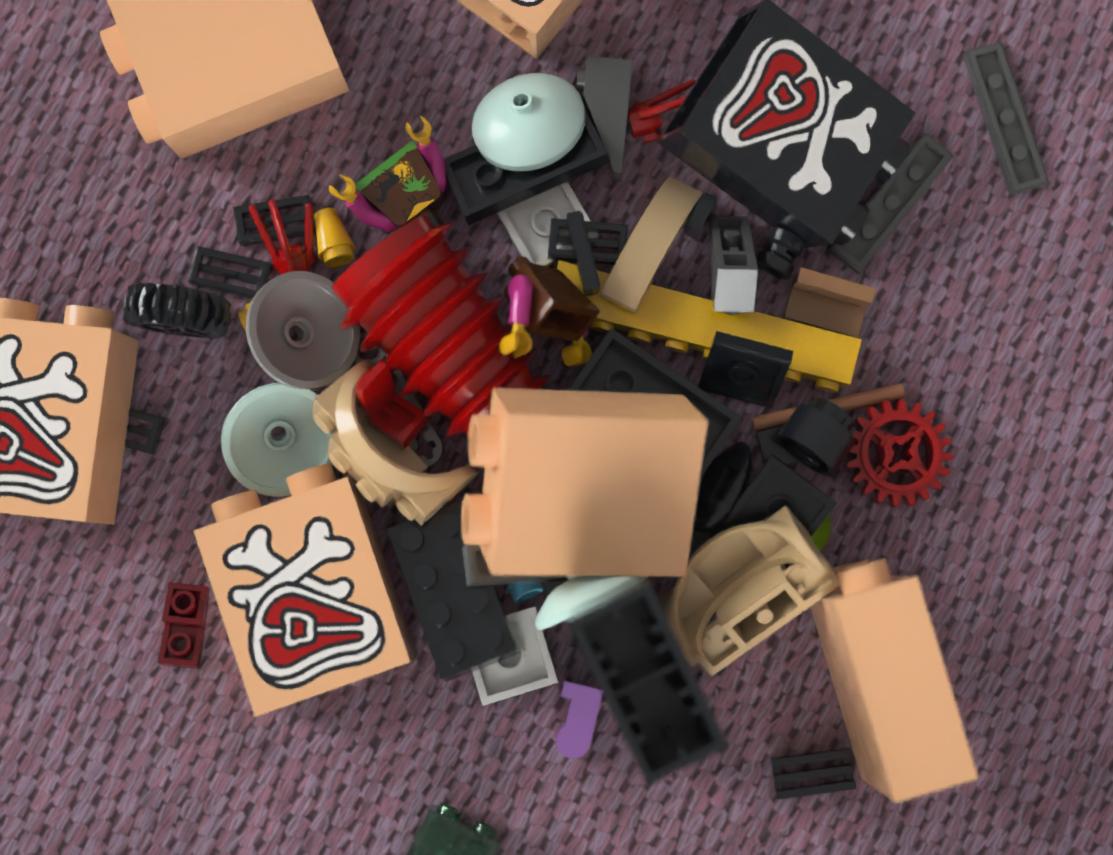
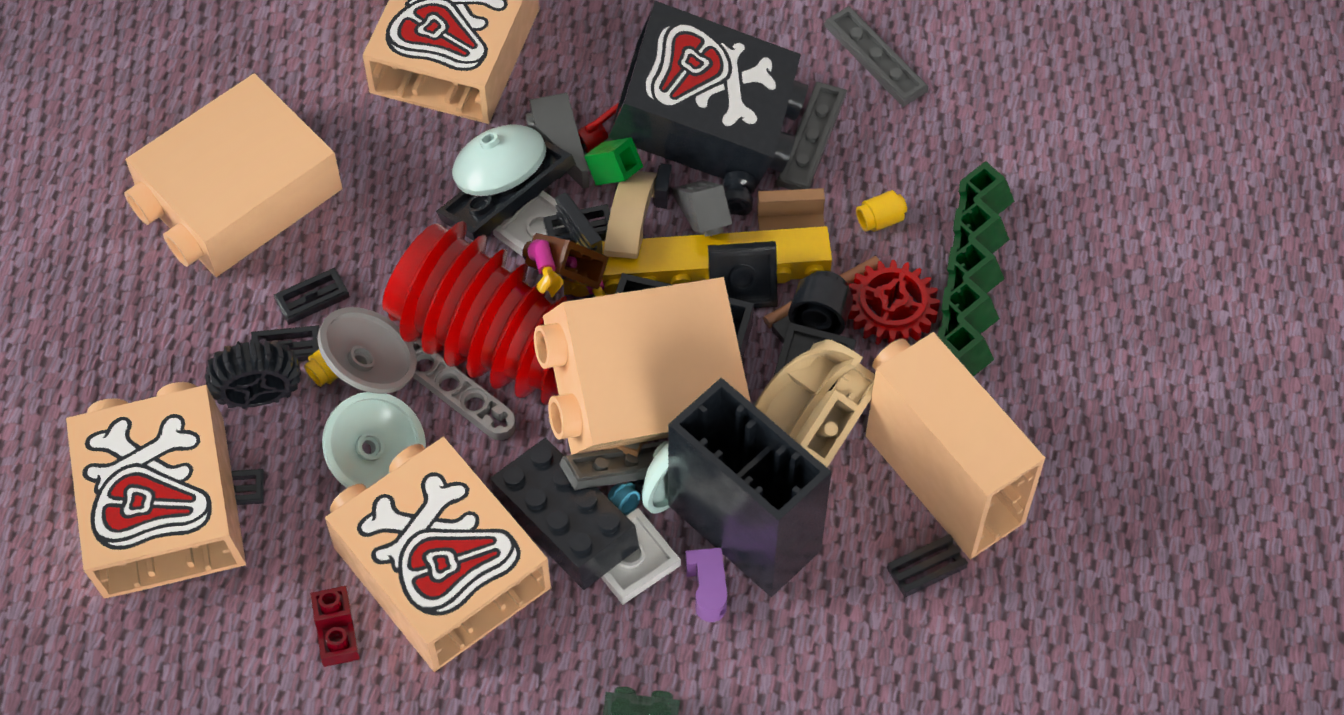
camera: 20 degrees left, 25 degrees down
(288, 257) = (334, 304): red plant -> none
(333, 240) = (365, 291): yellow cone -> none
(376, 463) = (472, 428): tan piece -> none
(386, 409) = (458, 389): red bracket -> none
(401, 187) = (403, 227): torso -> none
(653, 173) = (613, 161): none -> green brick
(722, 486) = (760, 365): black piece -> none
(931, 332) = (881, 211): none -> yellow brick
(1002, 444) = (973, 266): none -> dark green brick

